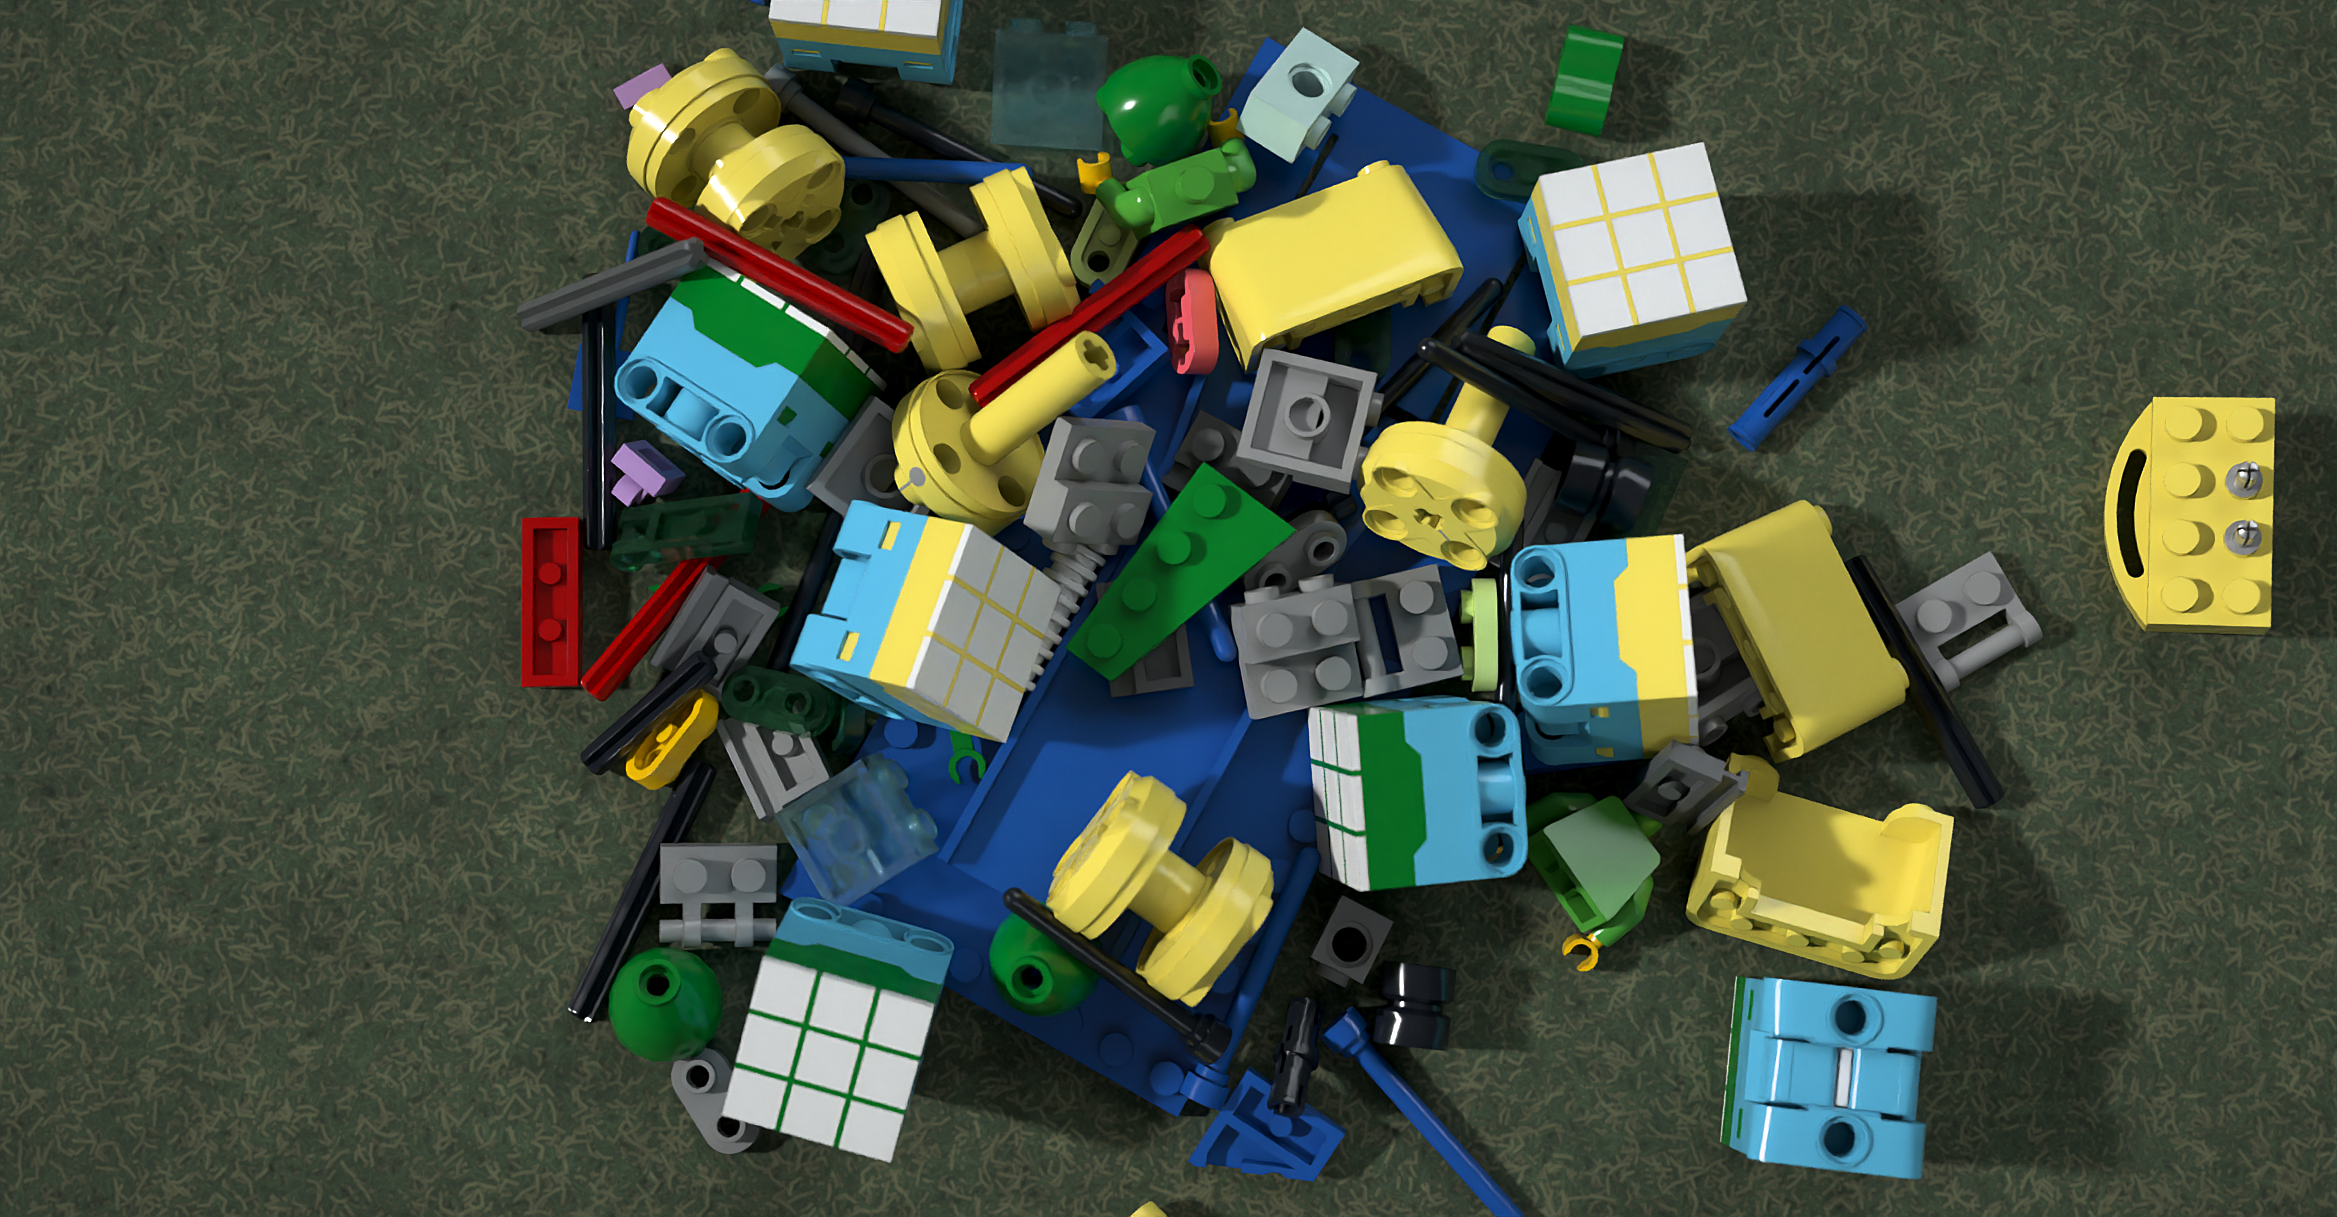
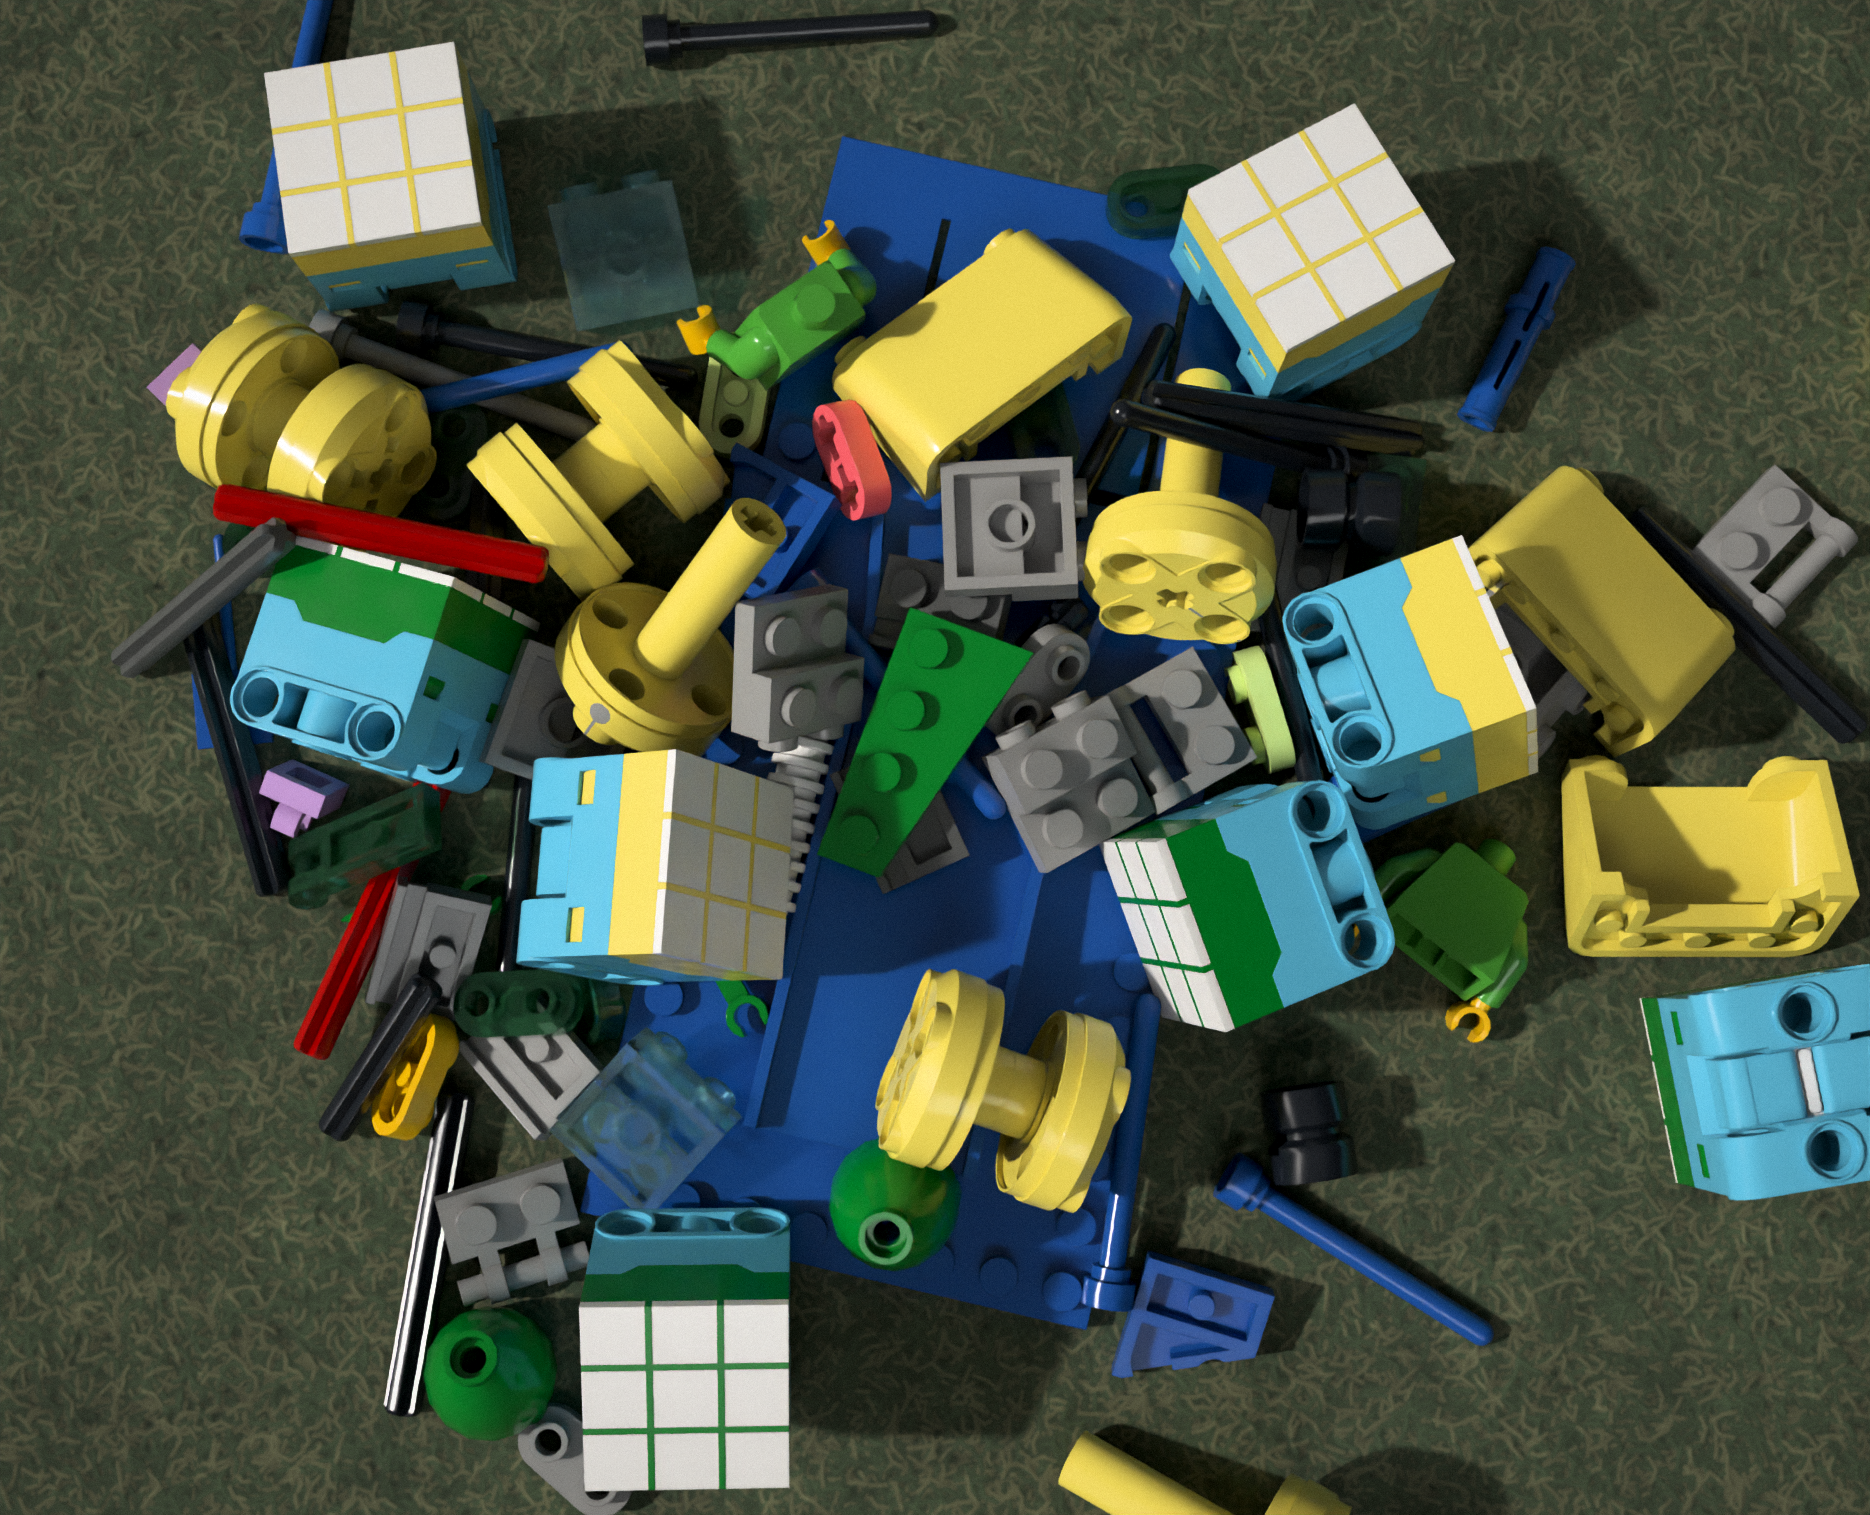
camera: 20 degrees left, 0 degrees up
(552, 602) = (239, 966): red plate -> none
(1096, 310) = (745, 475): red axle -> none
(1160, 106) = (750, 236): green piece -> none
(1202, 1035) = (1088, 1234): black piece -> none
(1296, 1057) = (1197, 1228): black pin -> none
(1298, 96) = (896, 186): light aqua brick -> none
(1373, 930) = (1239, 1063): light grey brick -> none
(1584, 80) = (1196, 86): green axle -> none
(1683, 787) = (1533, 812): dark grey plate -> none

